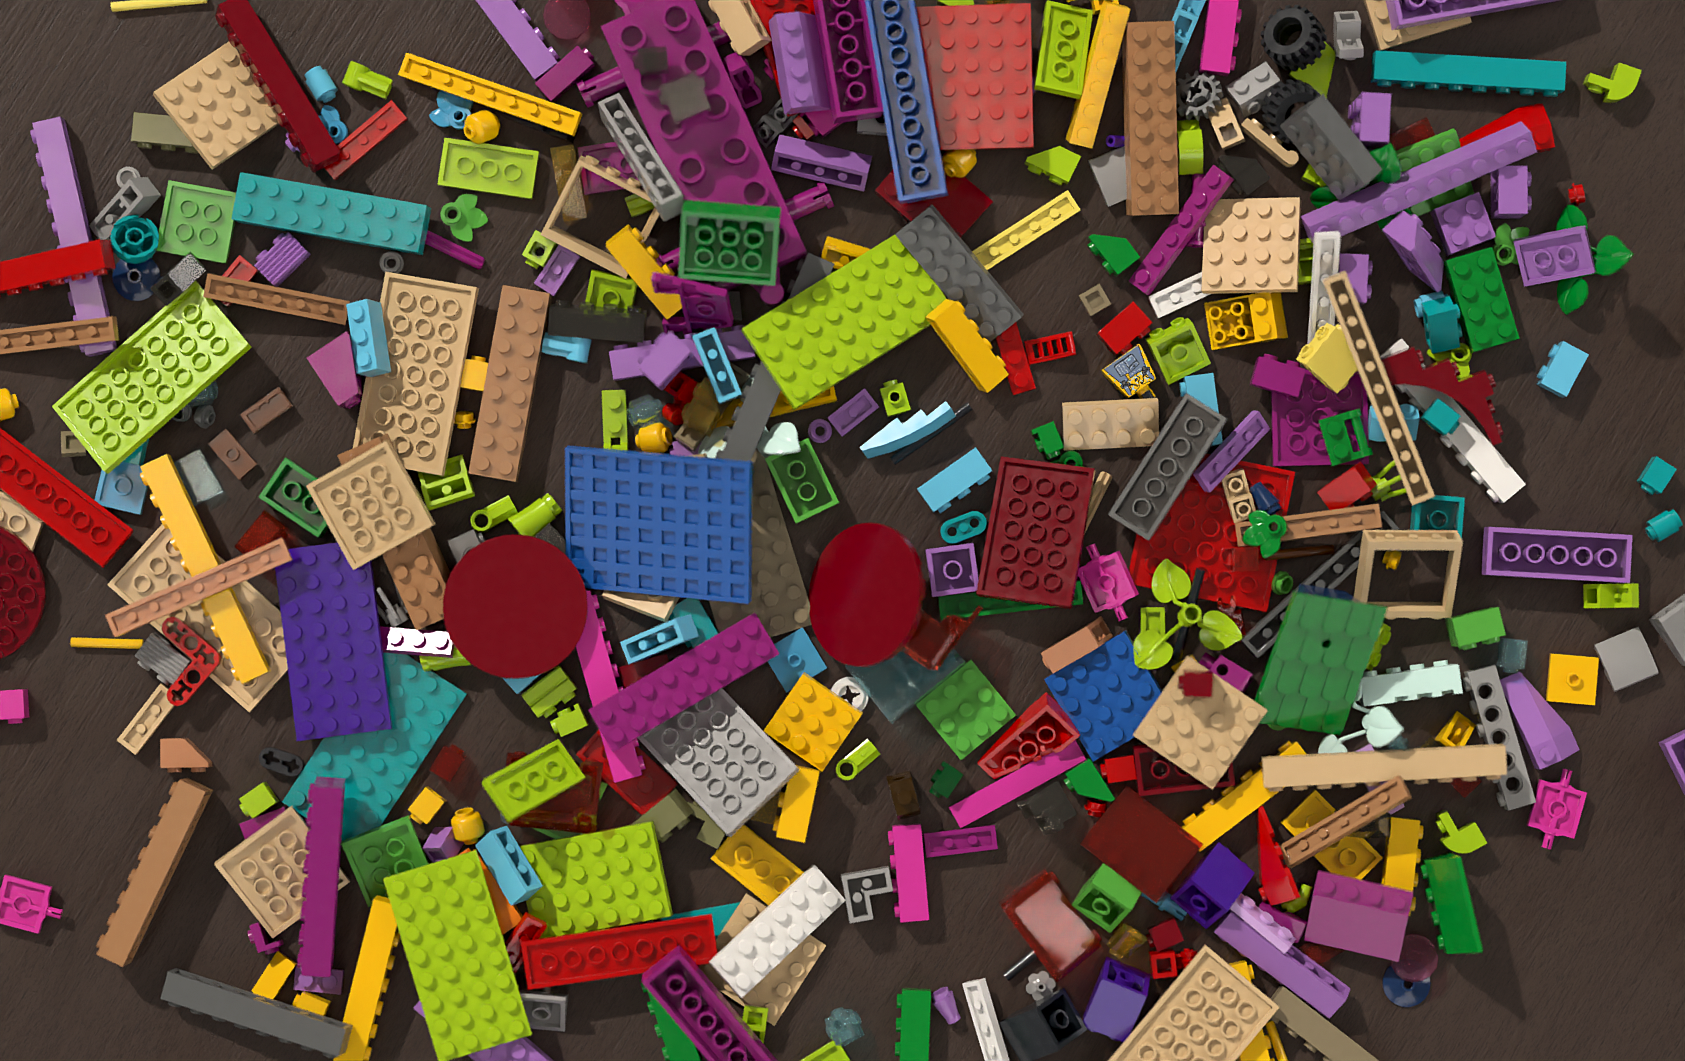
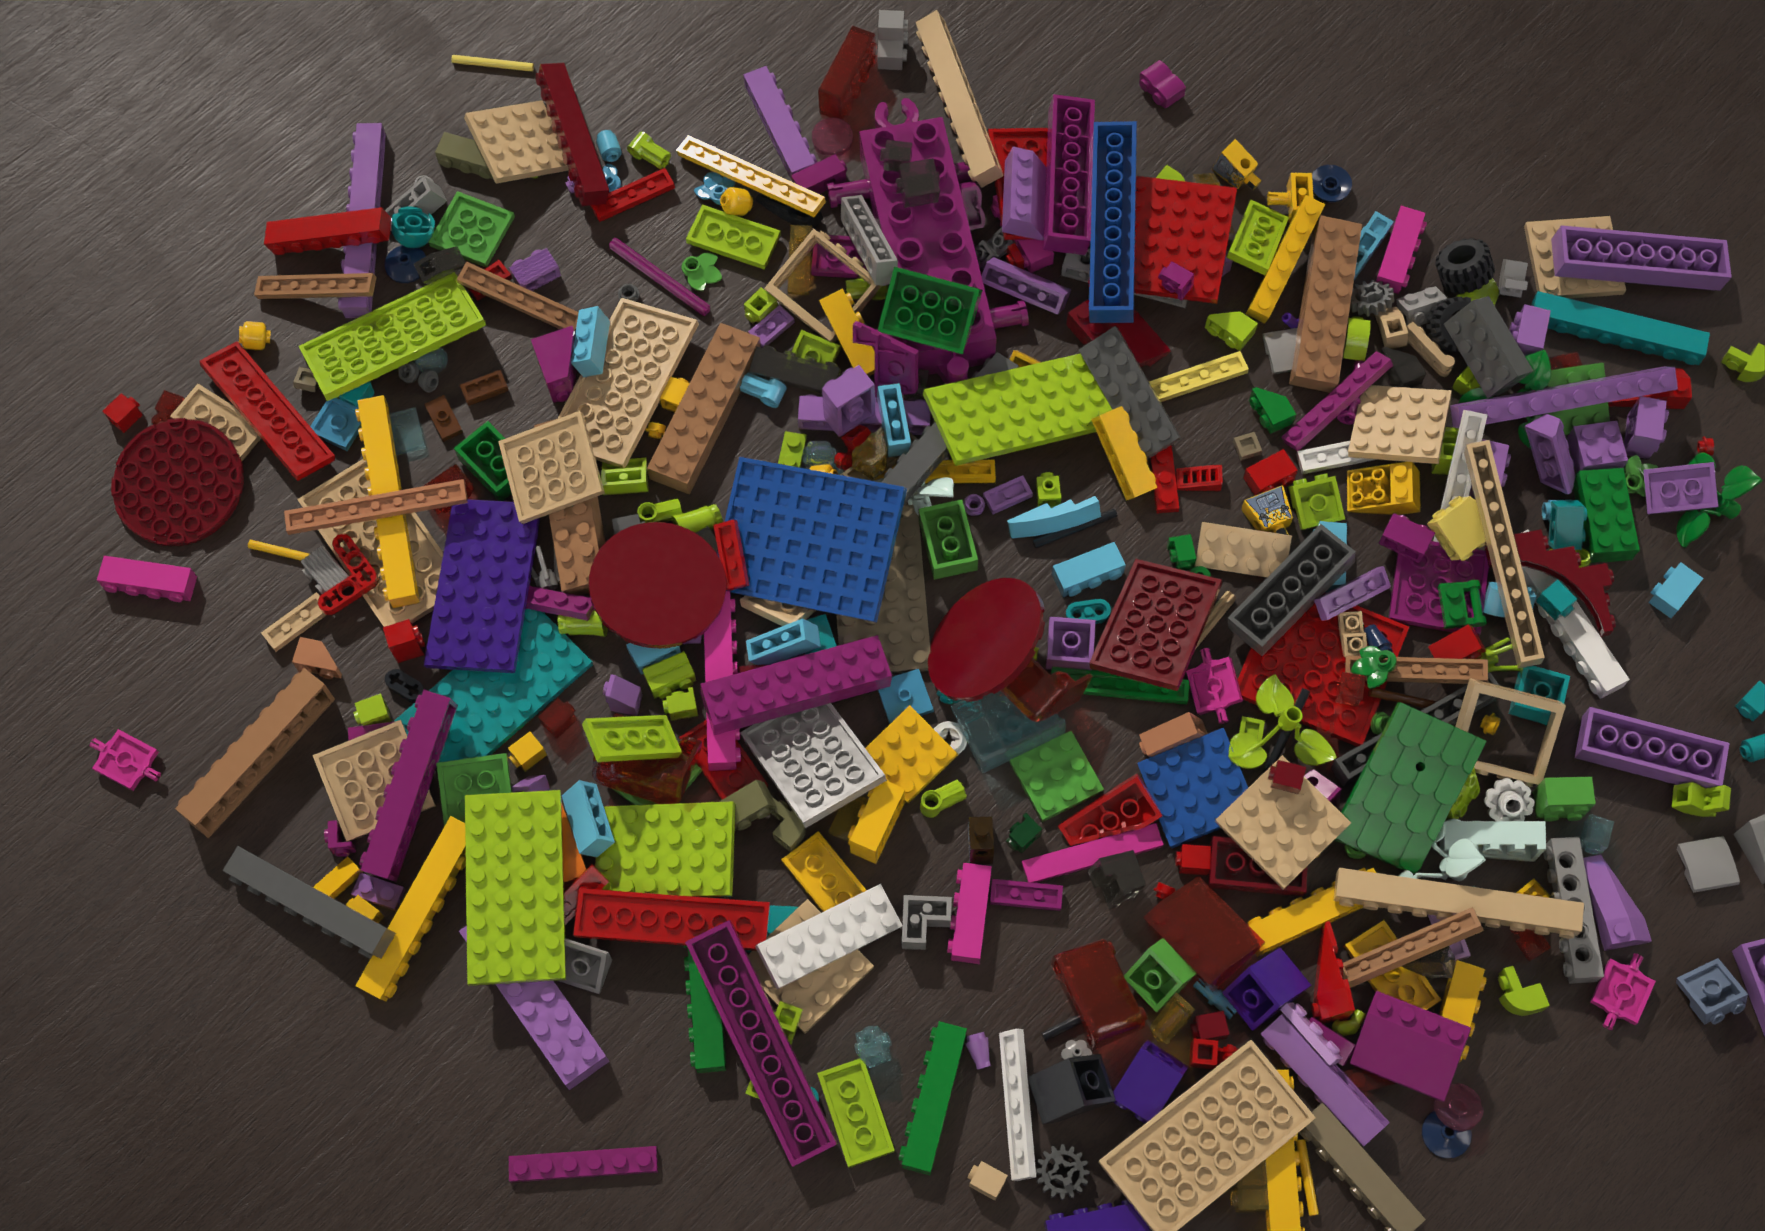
camera: 15 degrees right, 20 degrees down
(269, 719) = (404, 640): none -> red brick
(331, 213) = (588, 241): teal brick -> none
(467, 826) = (559, 776): yellow head -> none
(509, 727) = (622, 695): none -> medium lavender slope
(582, 553) = (731, 554): none -> red plate
(958, 162) = (1148, 308): yellow head -> none
(985, 138) = (1176, 279): none -> magenta brick
(1087, 781) = (1161, 865): green slope -> none
(1421, 640) = (1507, 790): none -> white plant
(1451, 904) = (1506, 1056): green slope -> none
(1572, 679) = (1652, 872): yellow plate -> none
(1643, 790) = (1713, 992): none -> sand blue plate

